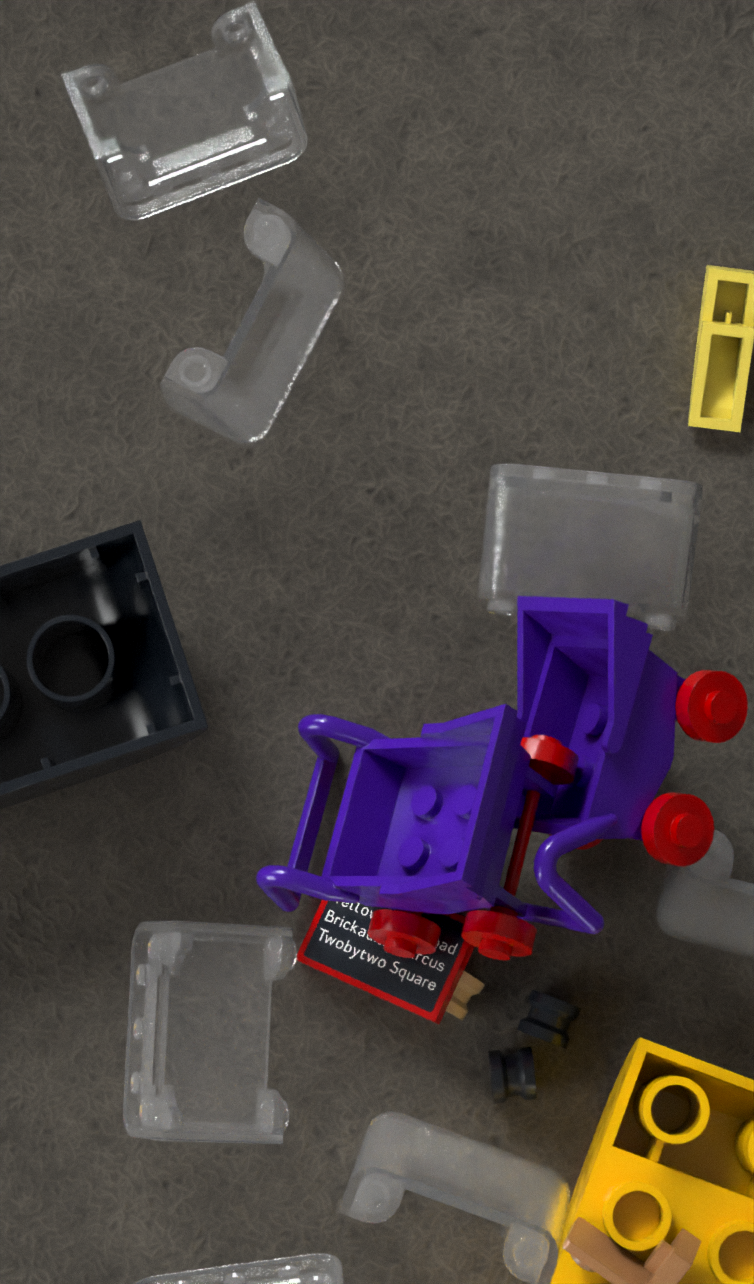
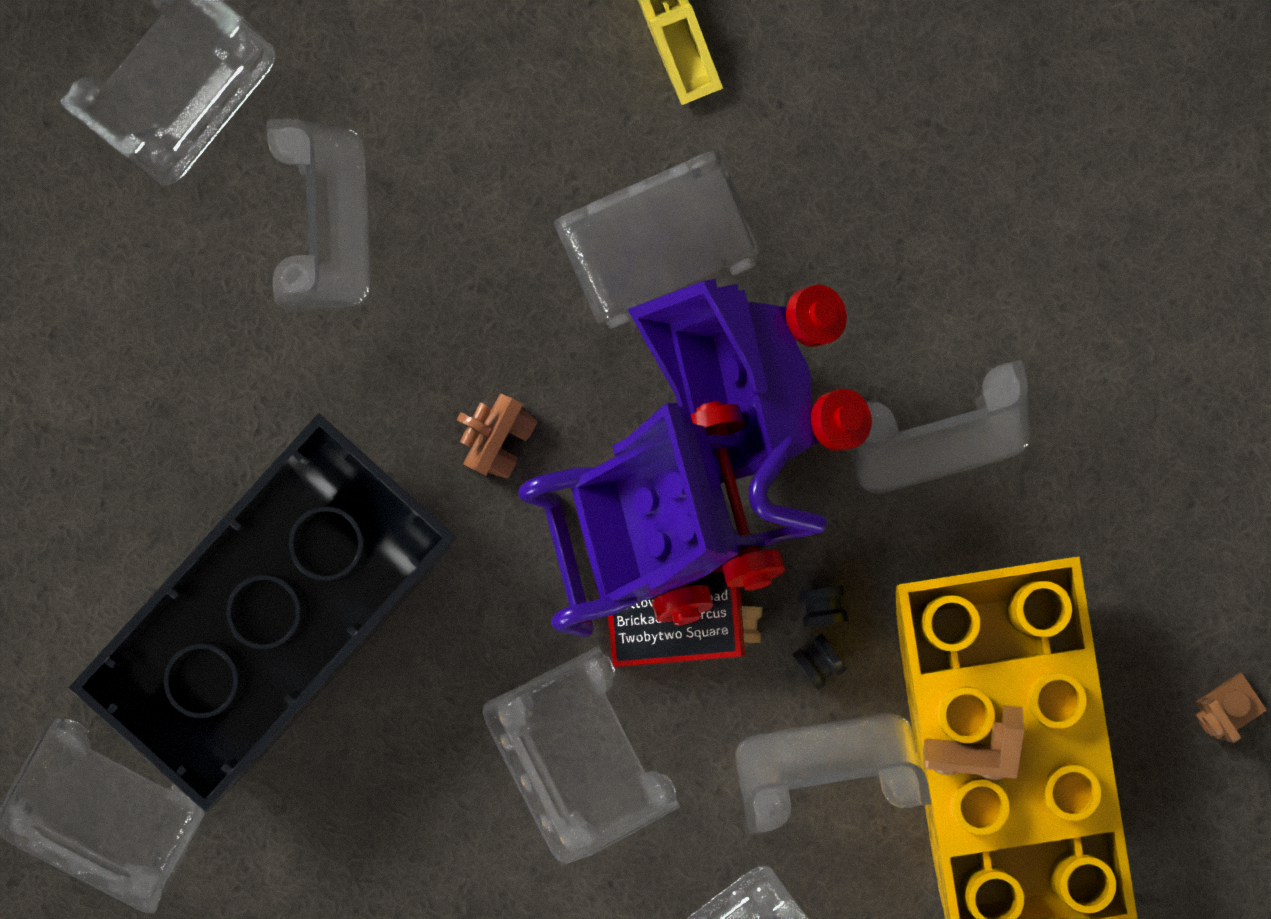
camera: 30 degrees left, 5 degrees up
(328, 641) = (488, 431): none -> nougat hips

